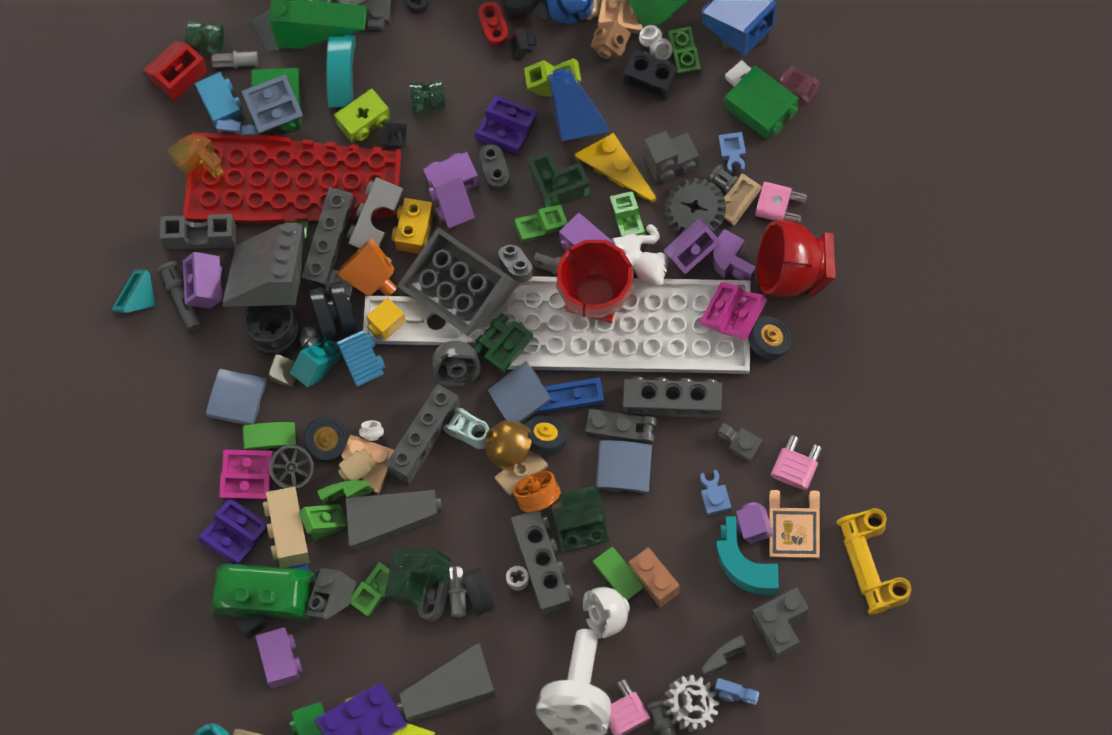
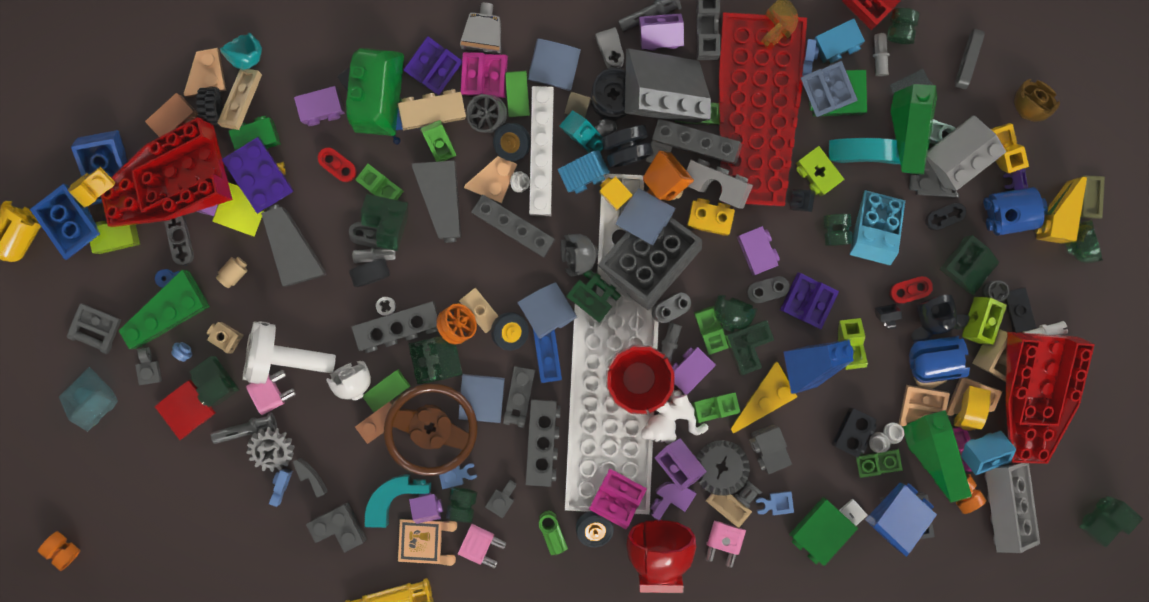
camera: 90 degrees right, 20 degrees up
(196, 474) = (482, 31): none -> light grey torso
(218, 335) = (610, 45): none -> light grey piece
(330, 594) = (369, 147): dark grey slope -> none
(341, 405) = (541, 151): none -> white brick
(346, 636) = (337, 165): none -> red plate
(348, 488) = (463, 164): bright green slope -> none
(356, 465) = (483, 169): tan brick -> none
(412, 287) = (645, 216): none -> sand blue slope
(426, 56) = (878, 228): none -> medium azure slope
(451, 198) = (733, 251): medium lavender brick -> none
(464, 426) = (519, 263): light aqua piece -> none
(507, 444) = (498, 300): pearl gold cylinder -> none
(521, 197) = (733, 313): none -> clear green cylinder
(610, 39) = (889, 396): medium nougat brick -> none
(661, 507) = (443, 430): none -> reddish brown piece
(757, 483) = (461, 504): none -> clear green wheel
(778, 383) = (552, 534): none -> bright green piece
(808, 85) = (841, 557): clear pink brick -> none

